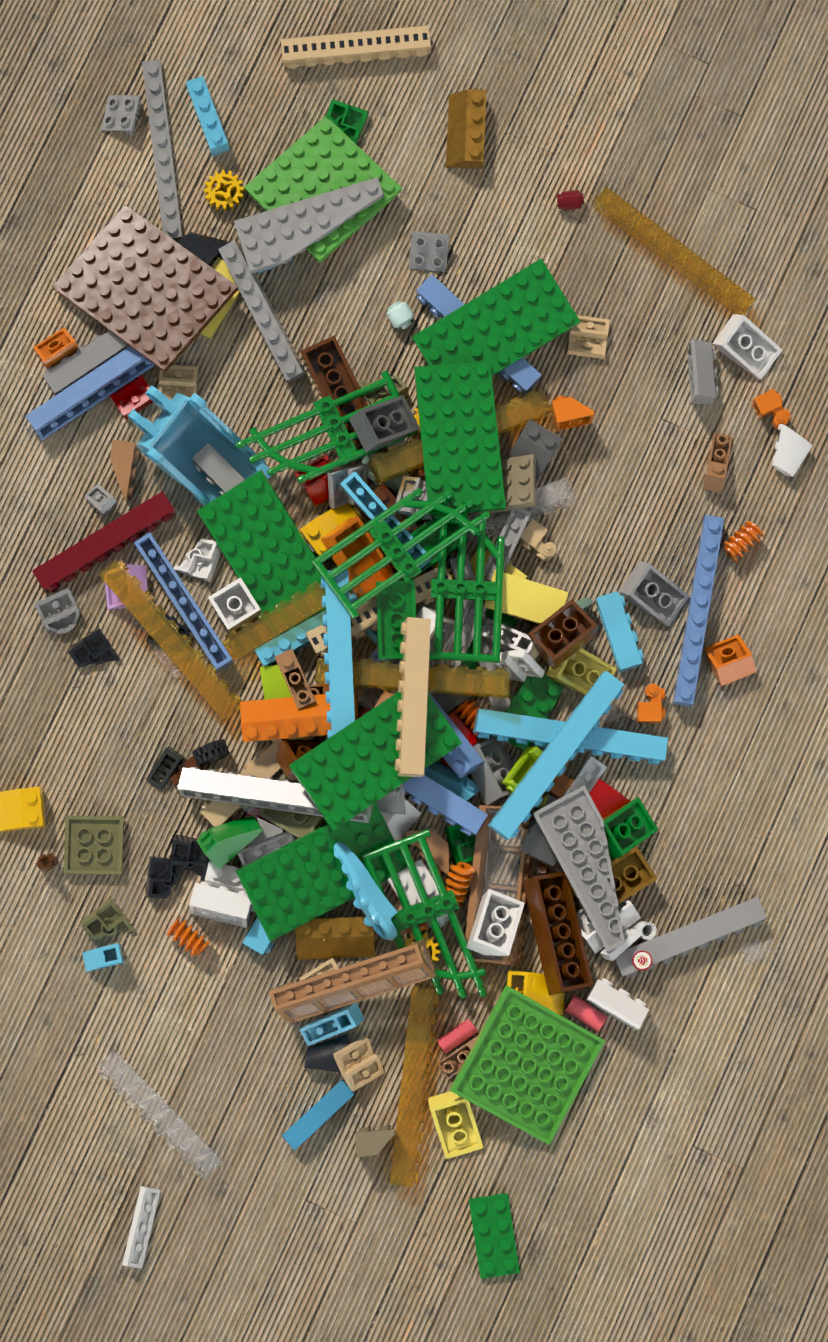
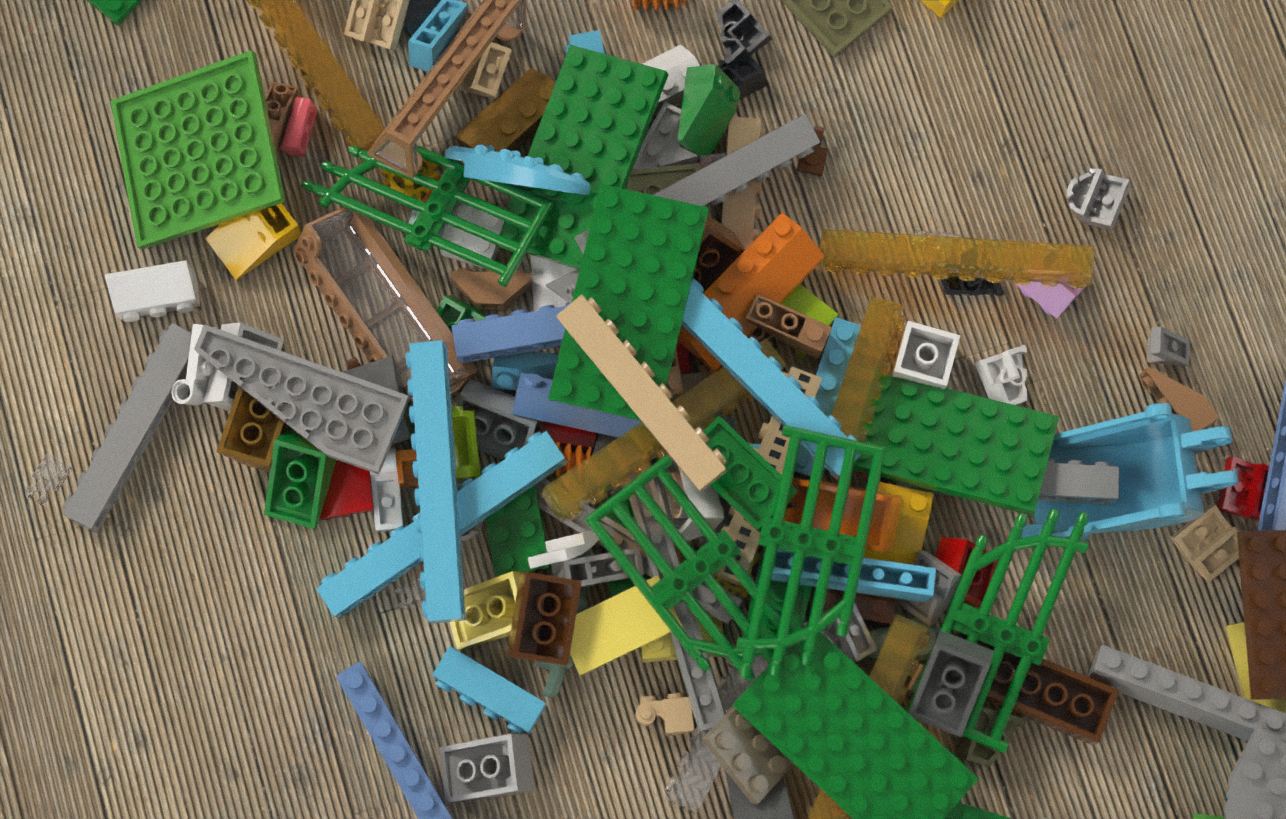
camera: 135 degrees right, 5 degrees down
(93, 650) = (1025, 192): black slope -> none
(104, 542) = (1121, 308): dark red brick -> none
(159, 764) = (839, 155): pearl dark grey slope -> none
(183, 602) = (984, 314): medium blue brick -> none
(210, 752) = (806, 186): black tyre -> none
(220, 904) = (660, 43): white slope -> none
(455, 1124) = (224, 35): light yellow slope -> none
(460, 880) = (430, 273): orange piece -> none
(495, 924) = (350, 258): white slope -> none
(557, 933) = (277, 305): reddish brown brick -> none
(586, 1013) = (196, 256): coral brick -> none
(642, 960) = (163, 354): tile -> none
(651, 711) = (377, 633): orange brick -> none
(730, 660) = (338, 767): orange slope -> none

